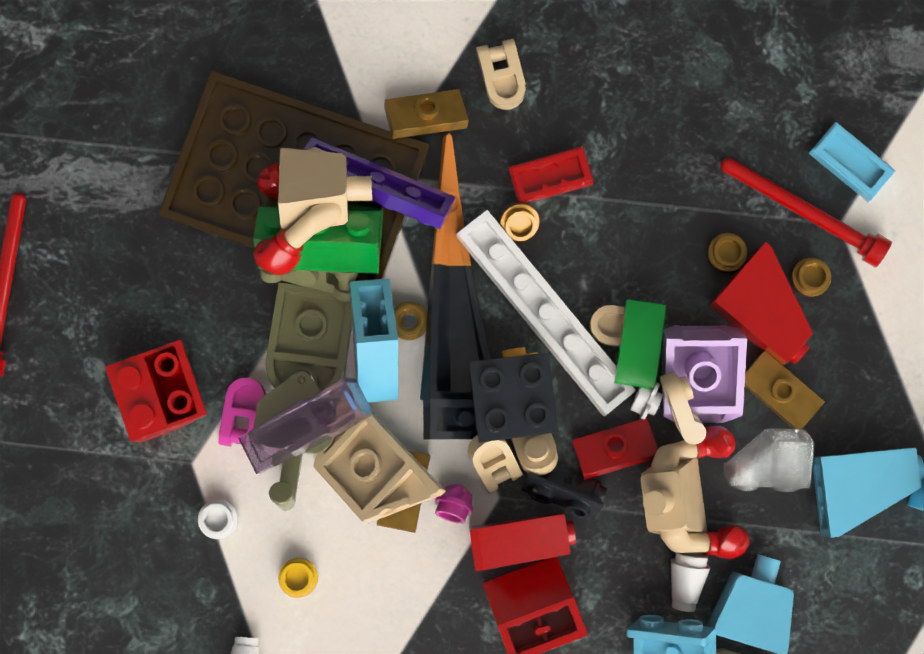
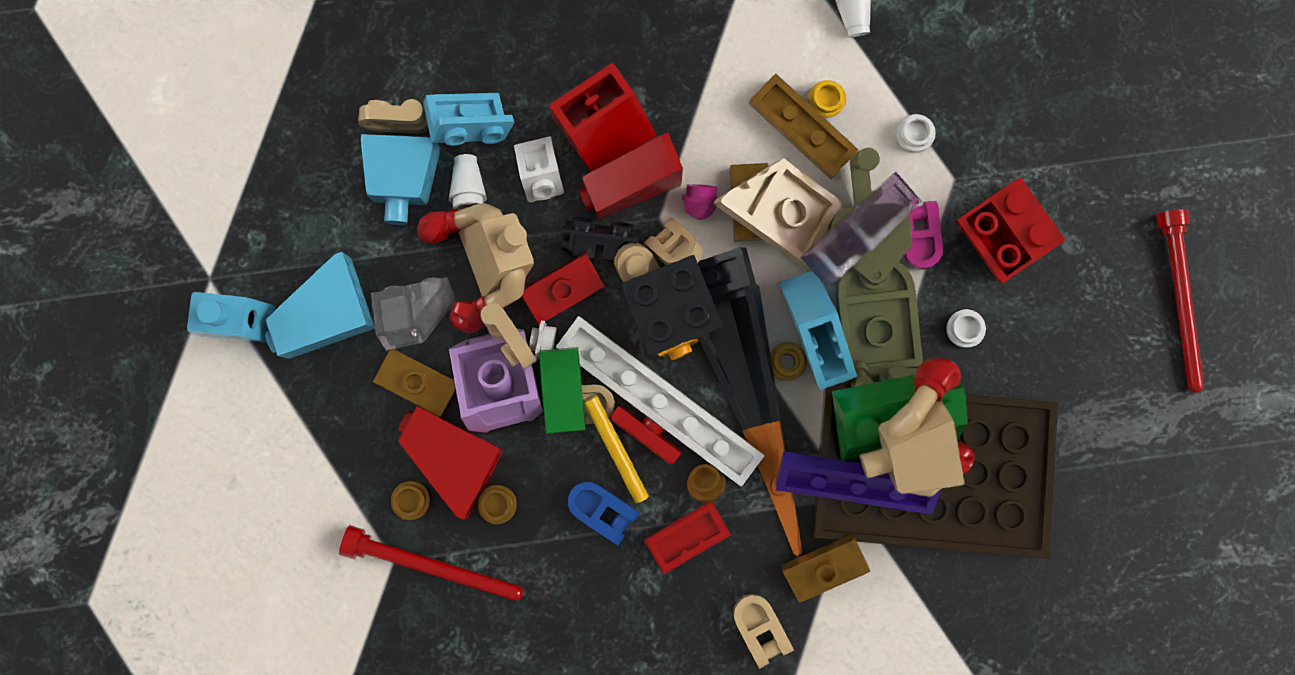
camera: 165 degrees right, 0 degrees up
(225, 309) = (966, 328): none -> white plate
(330, 554) = (803, 126): none -> pearl gold plate
(566, 282) = (646, 432): none -> red plate
(600, 276) = (616, 448): none -> yellow bar
(611, 577) = (538, 169): none -> white bracket
(638, 231) = (589, 501): none -> blue plate
(852, 162) = (394, 627): medium azure tile -> none

